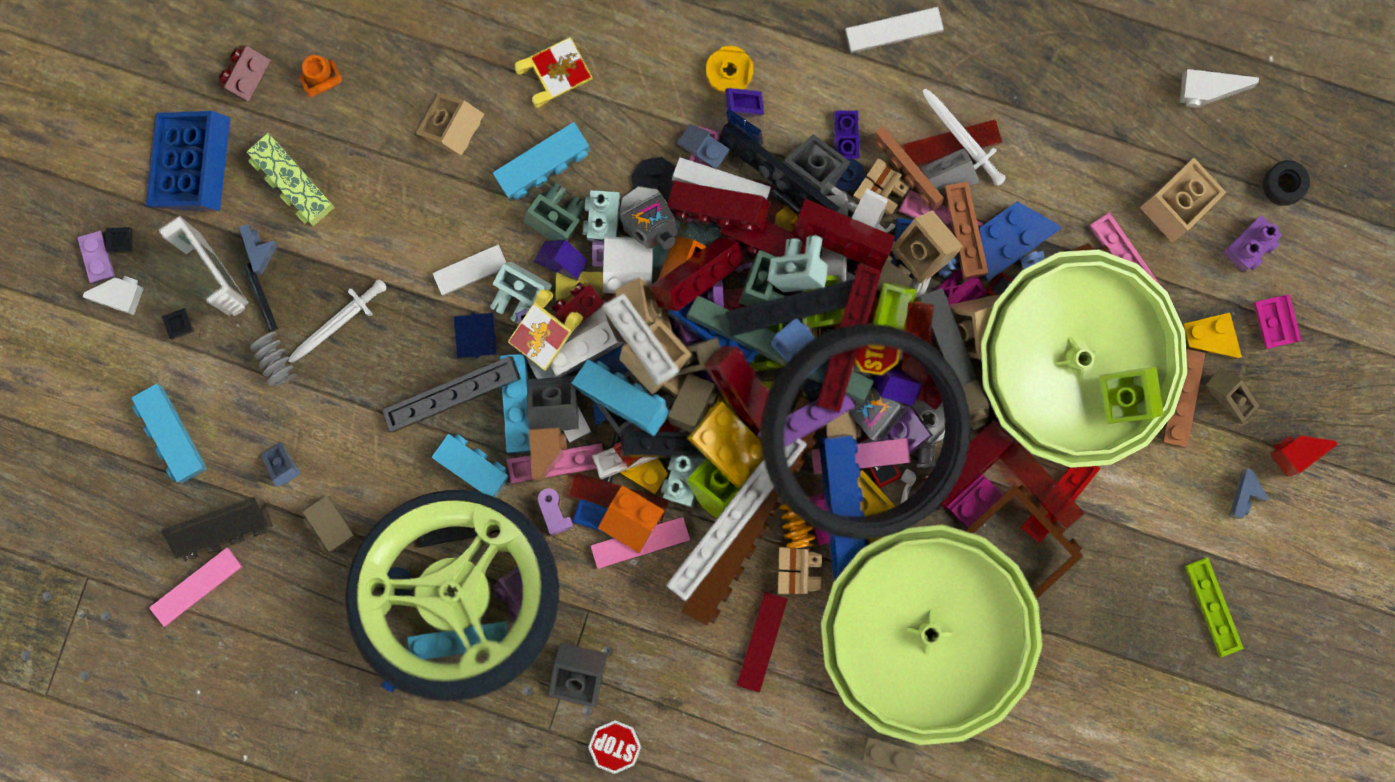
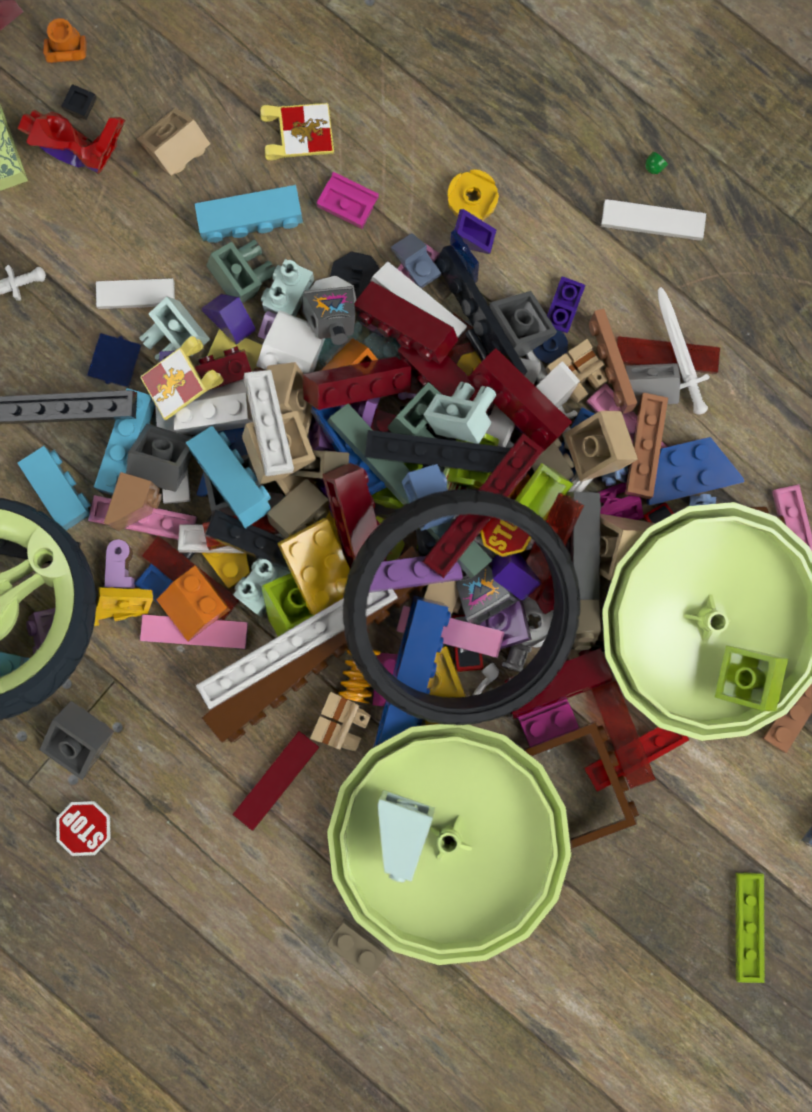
camera: 15 degrees right, 0 degrees up
(352, 121) = (79, 101): none -> black plate
(356, 162) = (65, 143): none -> red hips
(571, 541) = (122, 603): none -> yellow wing
(622, 116) = (347, 200): none -> dark pink plate
(892, 640) = (403, 833): none -> light aqua slope

